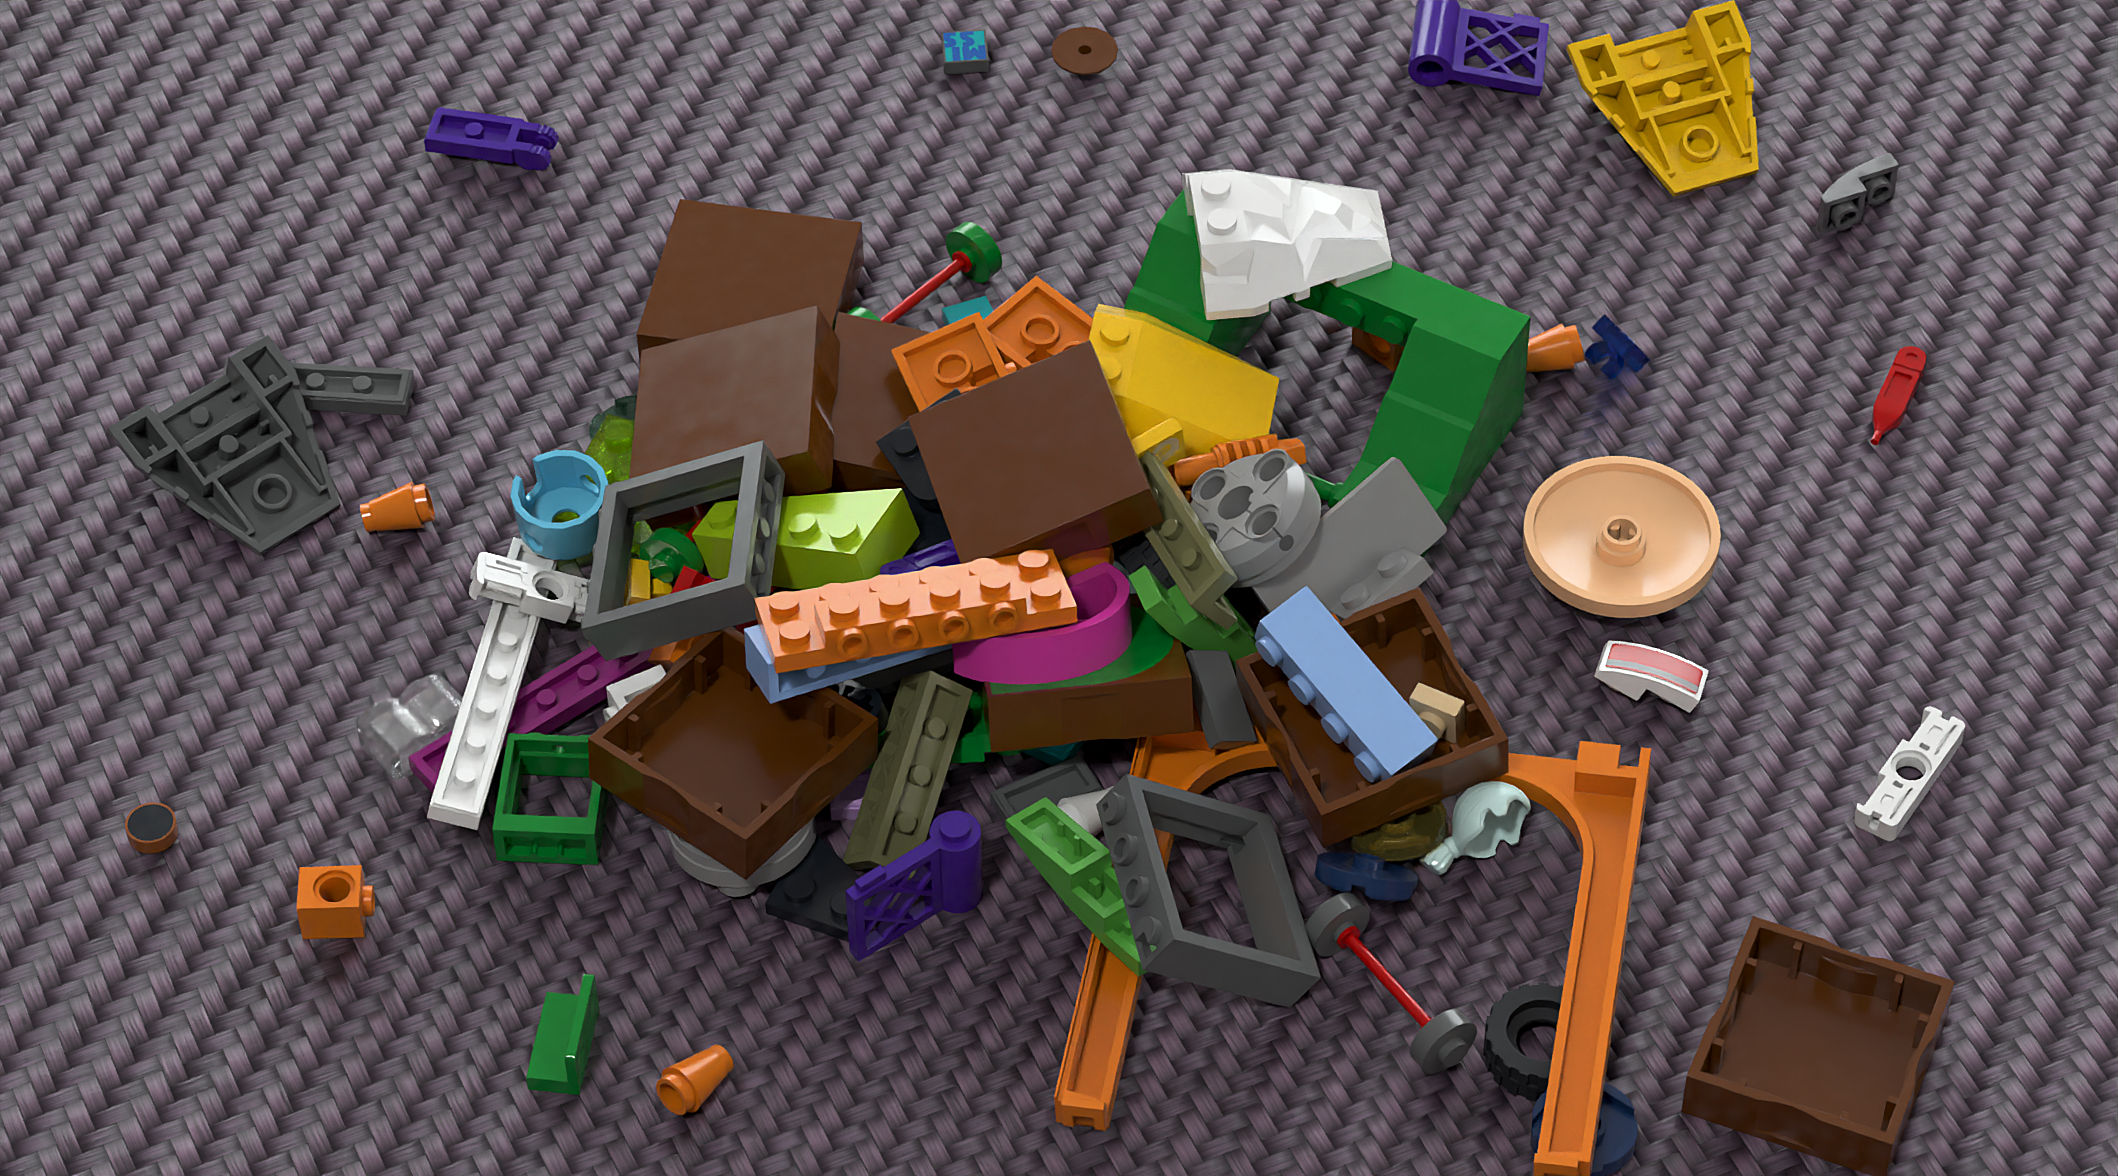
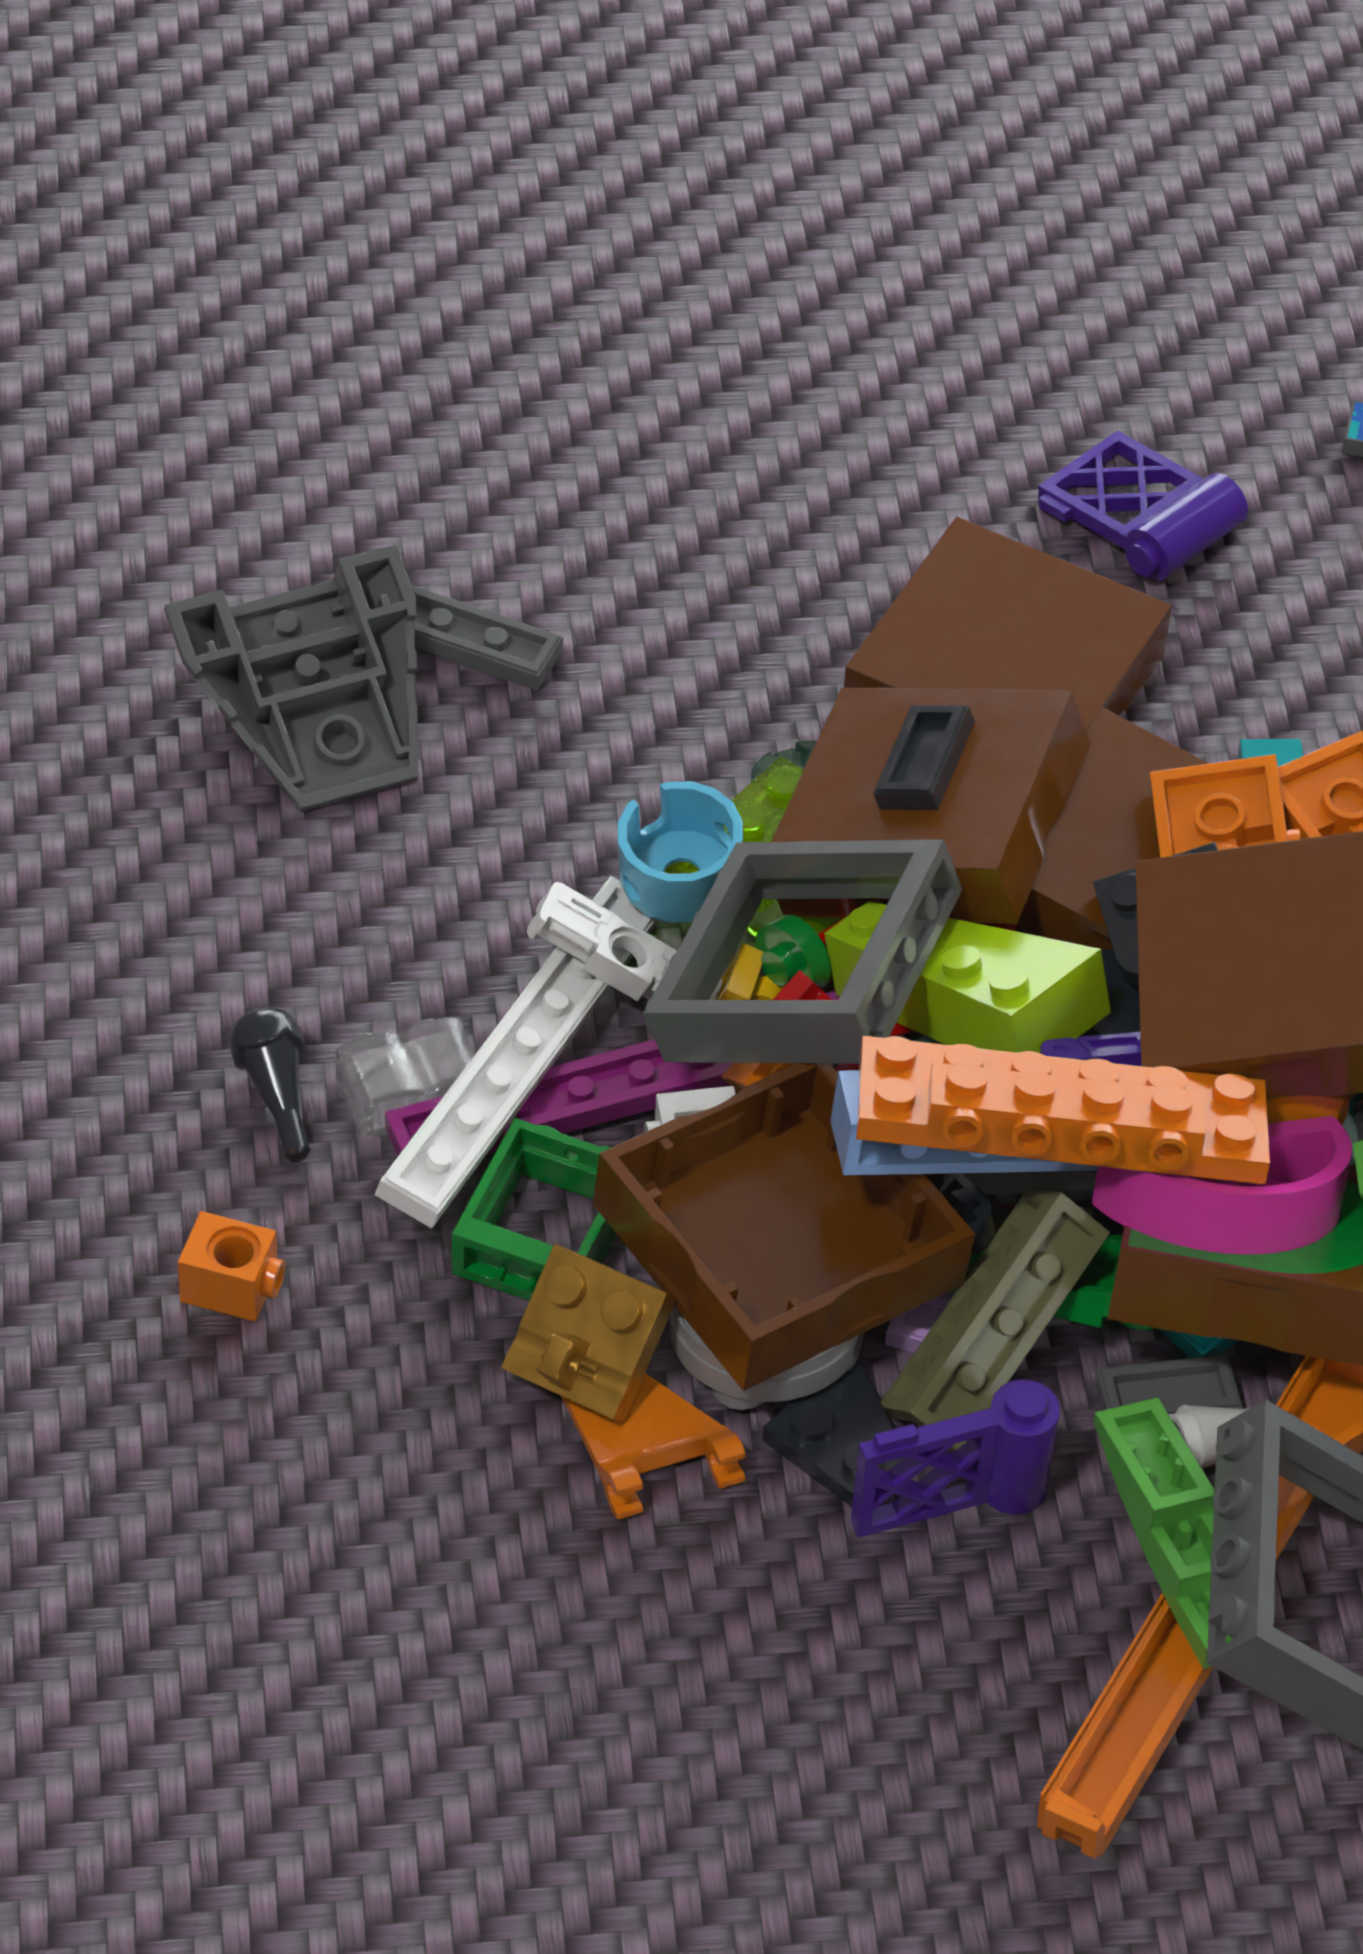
camera: 15 degrees right, 0 degrees up
(151, 827) = (47, 1109): black tile -> none
(304, 736) = (268, 1049): none -> black piece
(399, 509) = (485, 802): orange cone -> none
(490, 138) = (756, 383): dark purple hinge -> none
(564, 1040) = (452, 1527): green panel -> none
(617, 871) = (589, 1333): none -> pearl gold hinge
(675, 929) = (655, 1434): none -> orange flag
(692, 1080) = (594, 1628): orange cone -> none
(724, 384) = (924, 757): none -> black tile
(837, 162) = (1170, 524): none -> dark purple piece
(972, 254) = (1299, 681): green axle -> none

